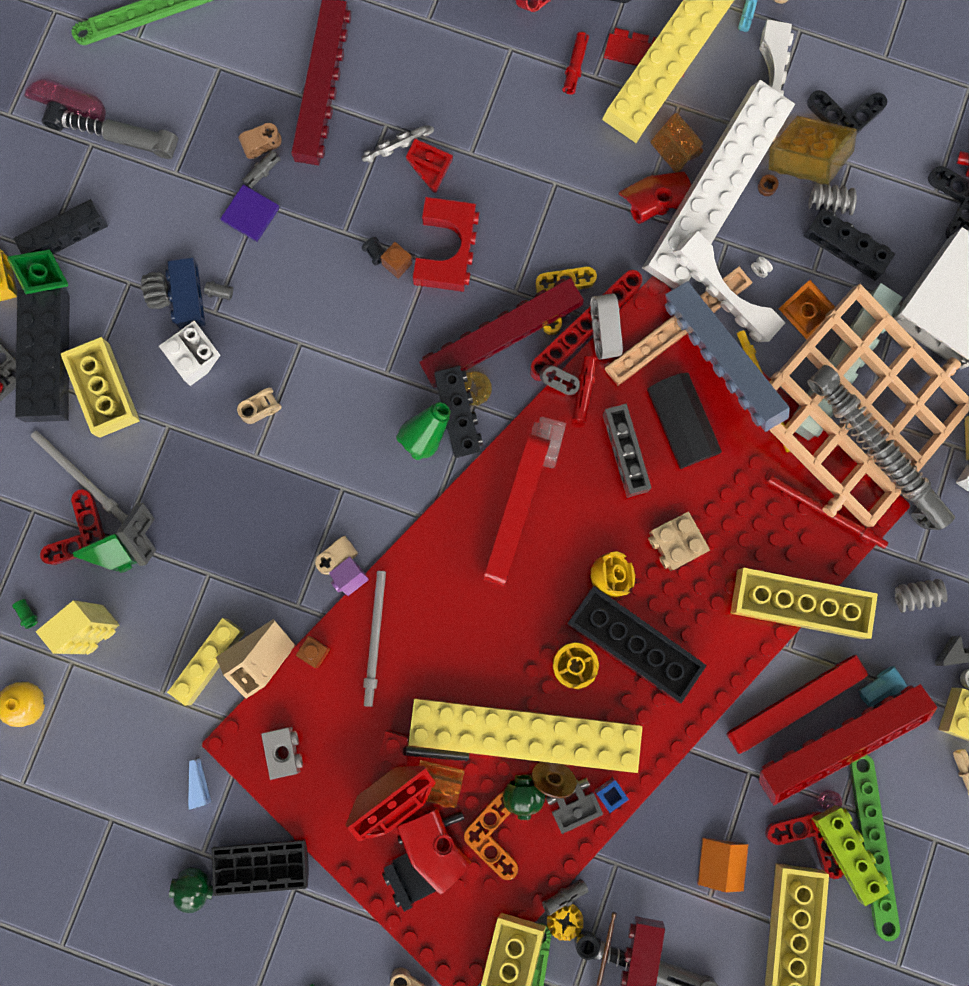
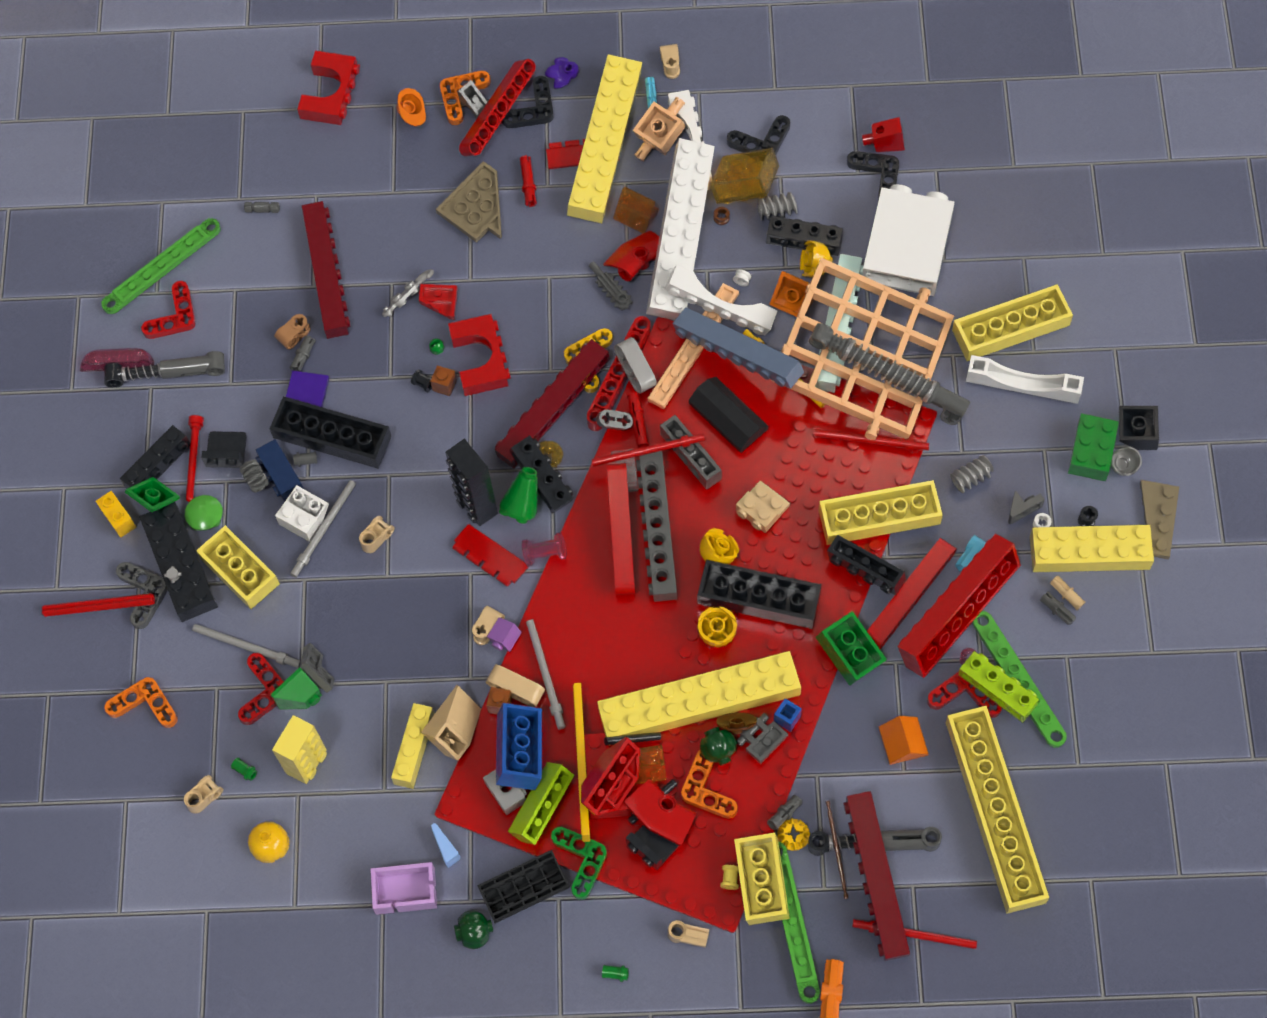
camera: 15 degrees left, 15 degrees down
(24, 372) = (172, 574): none -> light grey piece
(91, 309) = (203, 513): none -> bright green dish
(119, 206) = (195, 423): none -> red piece
(136, 814) = (403, 888): none -> lavender piece
(139, 247) = (225, 449): none -> black bracket
(146, 77) = (177, 319): none -> red beam
(175, 403) = (303, 559): none -> light grey bar
(254, 272) = (330, 432): none -> black brick
(311, 717) = (519, 746): none -> blue brick
(311, 786) = (541, 803): none -> lime brick
(337, 640) = (520, 687): none -> tan beam
(339, 856) = (586, 853): none -> green beam
(370, 399) = (471, 482): none -> black brick
(374, 479) = (493, 555): none -> red windscreen
(375, 747) = (581, 760): none -> yellow tile
(405, 220) = (438, 346): none -> green hinge
(426, 497) = (544, 549): none -> clear pink piece
(478, 948) = (730, 877): none -> light yellow bush
(509, 68) = (475, 204): none -> dark tan wing
(584, 446) = (667, 589): none -> dark grey brick
(616, 220) = (612, 288): none -> dark grey piece
(624, 440) = (684, 441): none -> red bar
(709, 746) = (850, 648): none -> green brick
(748, 45) = (661, 118): none -> light nougat brick
(765, 660) = (867, 565): none -> black brick
(847, 275) = (811, 256): none -> yellow cylinder
(949, 785) = (1058, 608): none -> dark grey axle

